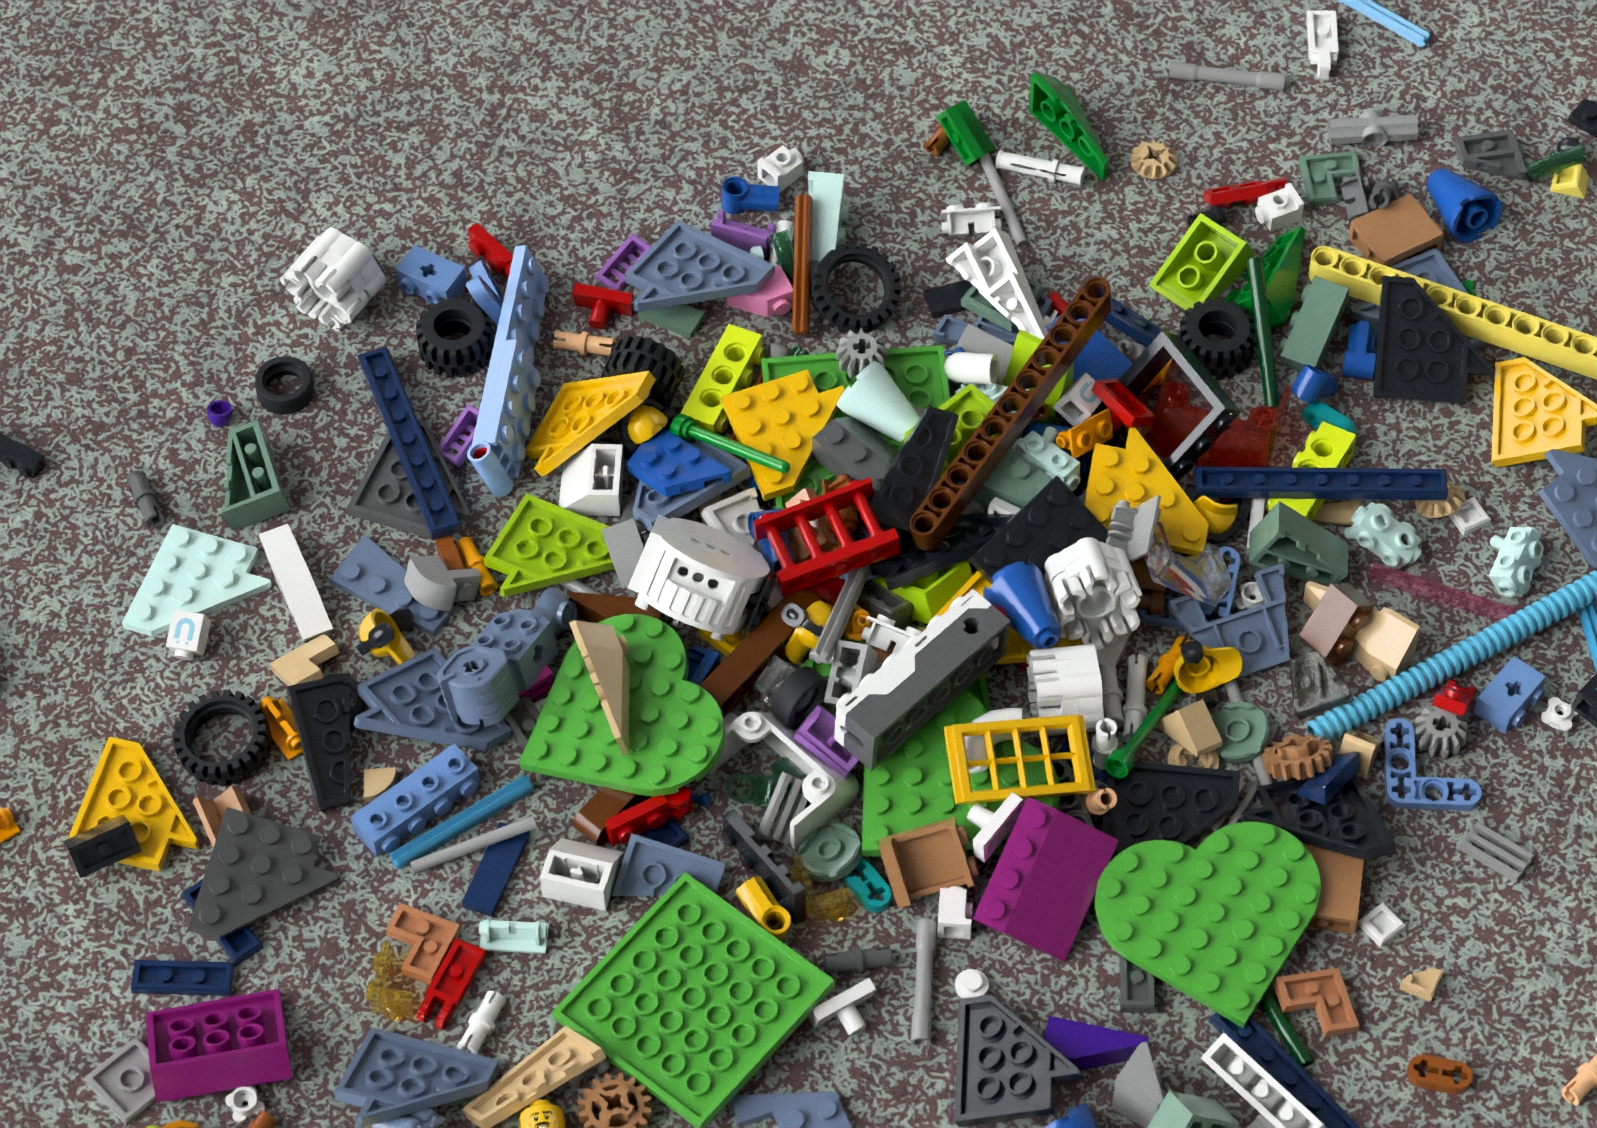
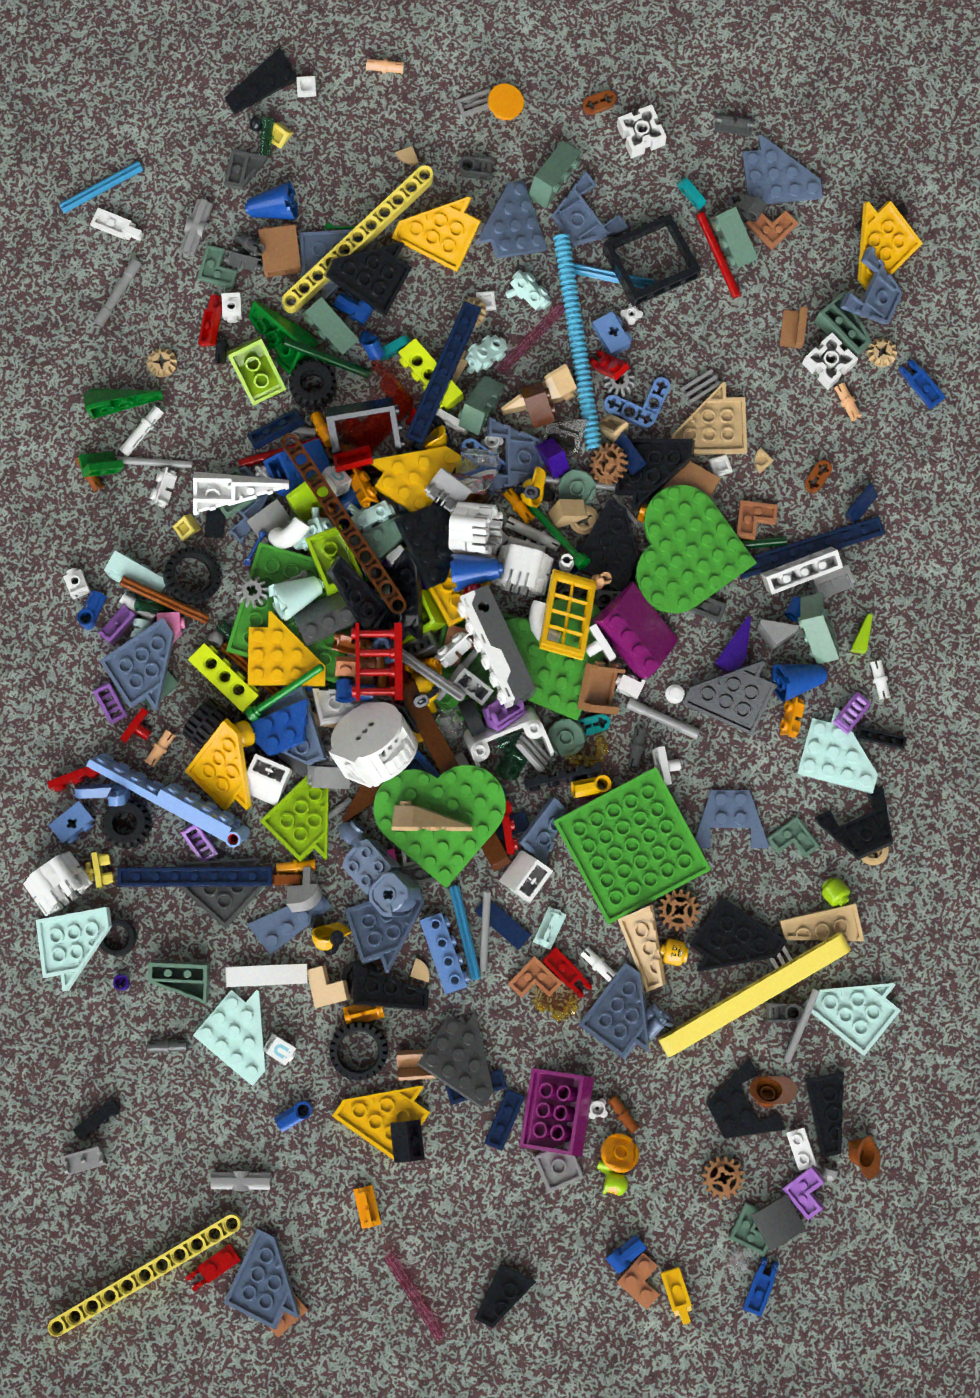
camera: 70 degrees left, 25 degrees up
(95, 690) = (293, 1116): none -> blue piece
(254, 327) = (70, 942): none -> light aqua wing
(375, 326) = (98, 861): none -> light yellow hips
(927, 268) = (186, 527): none -> light yellow slope
(1267, 679) = (553, 457): none -> dark purple slope
(1443, 893) = (717, 425): none -> tan wing

